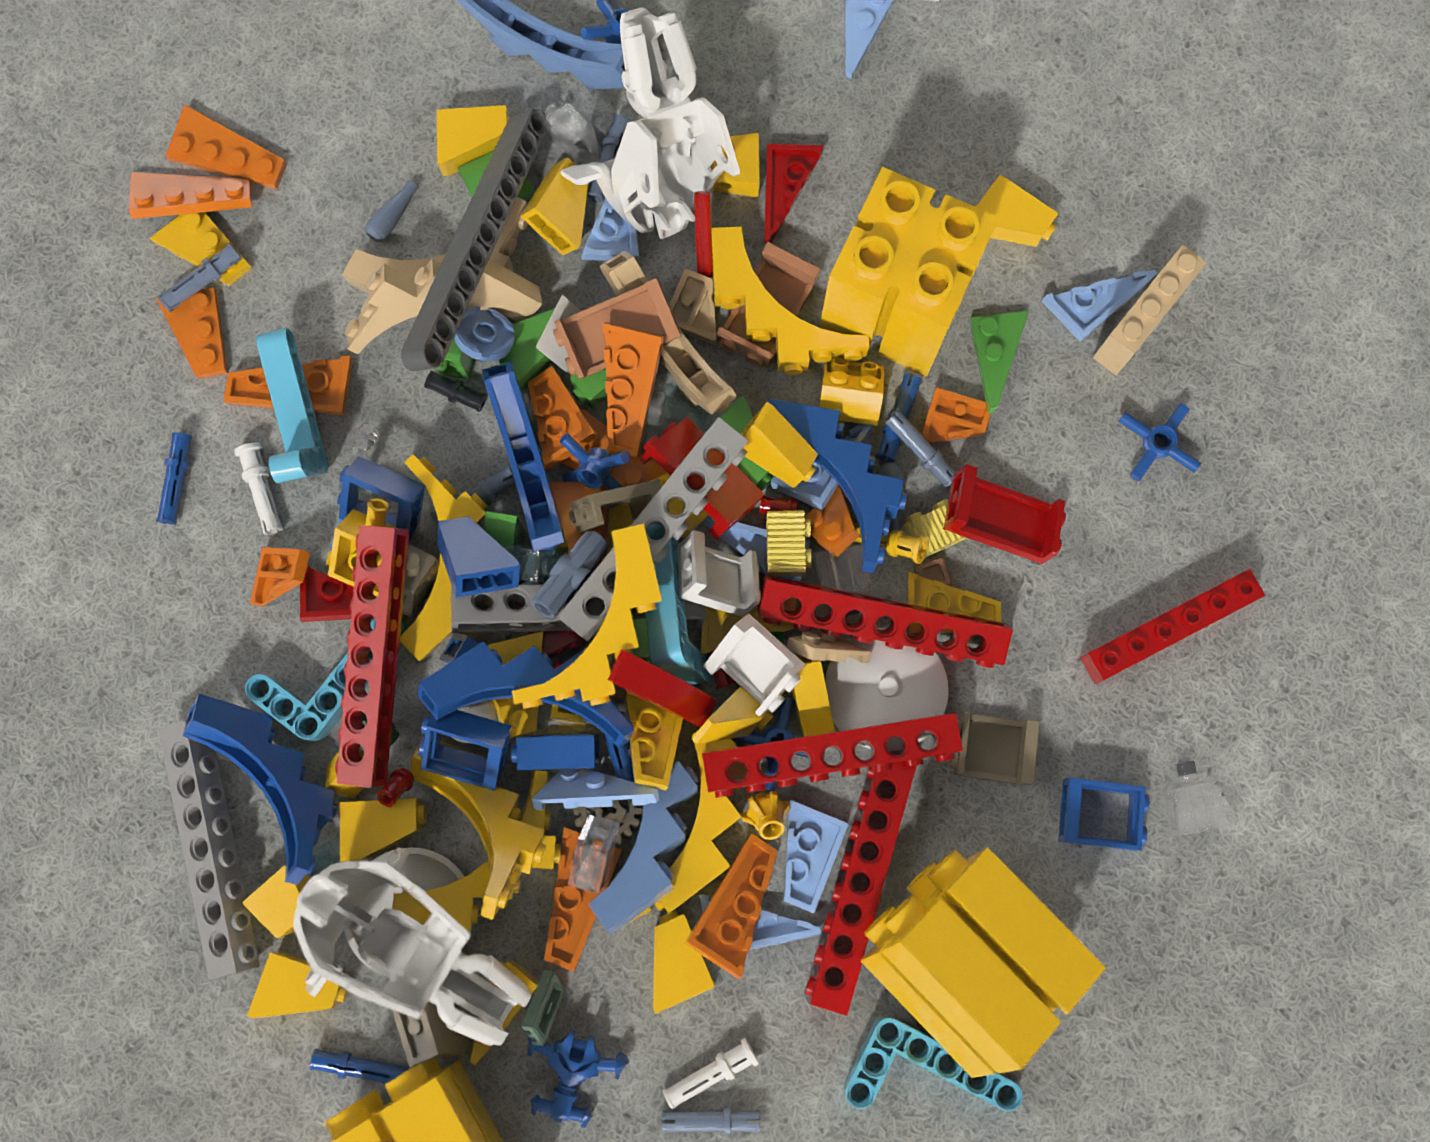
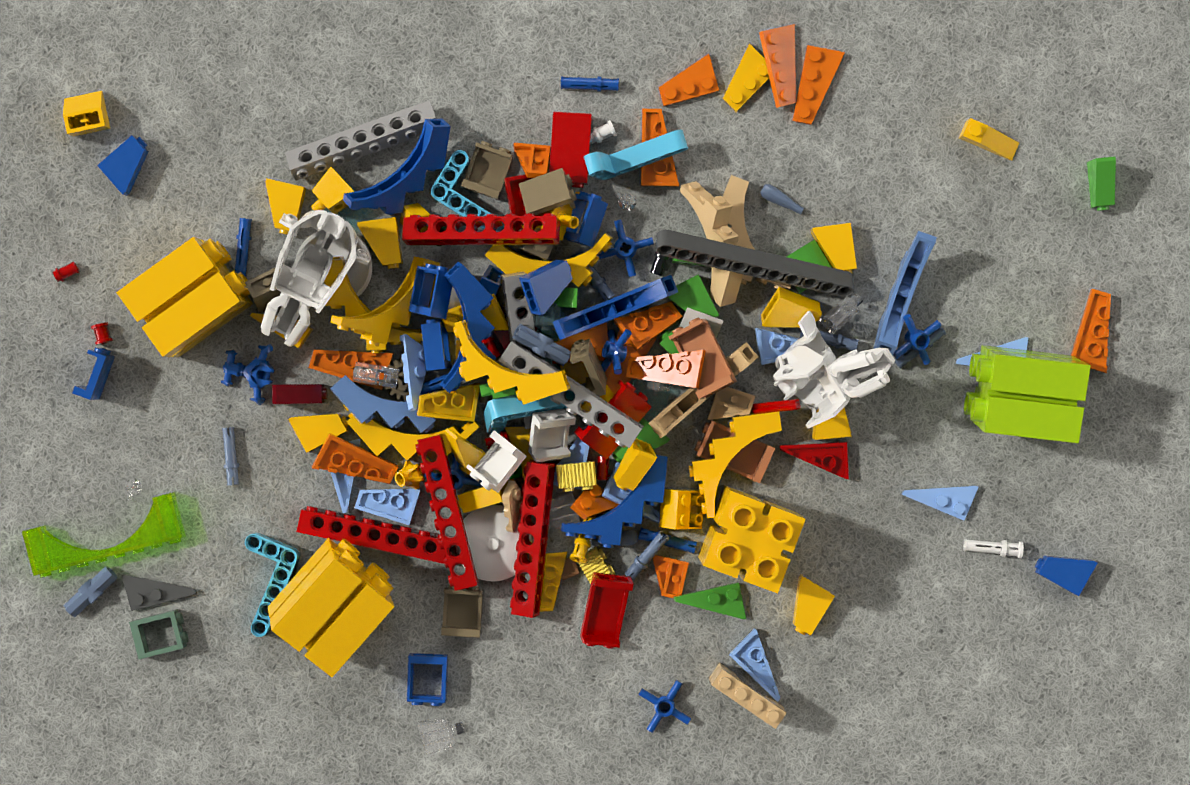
camera: 90 degrees right, 10 degrees up
(196, 280) = (719, 79): sand blue pin -> none
(270, 514) = (570, 144): none -> red panel
(286, 648) = (487, 170): none -> dark tan panel
(326, 547) = (547, 192): none -> dark tan panel
(400, 781) = (410, 251): red pin -> none
(428, 440) = (629, 242): none -> blue bar
(485, 334) = (693, 276): medium blue tile -> none
(543, 1007) = (285, 352): sand green tile -> none
(615, 991) = (298, 393): none -> dark red slope
(661, 689) = (474, 408): red slope -> none
(723, 1067) = (262, 462): white pin -> none
(1172, 626) = (546, 717): red brick -> none

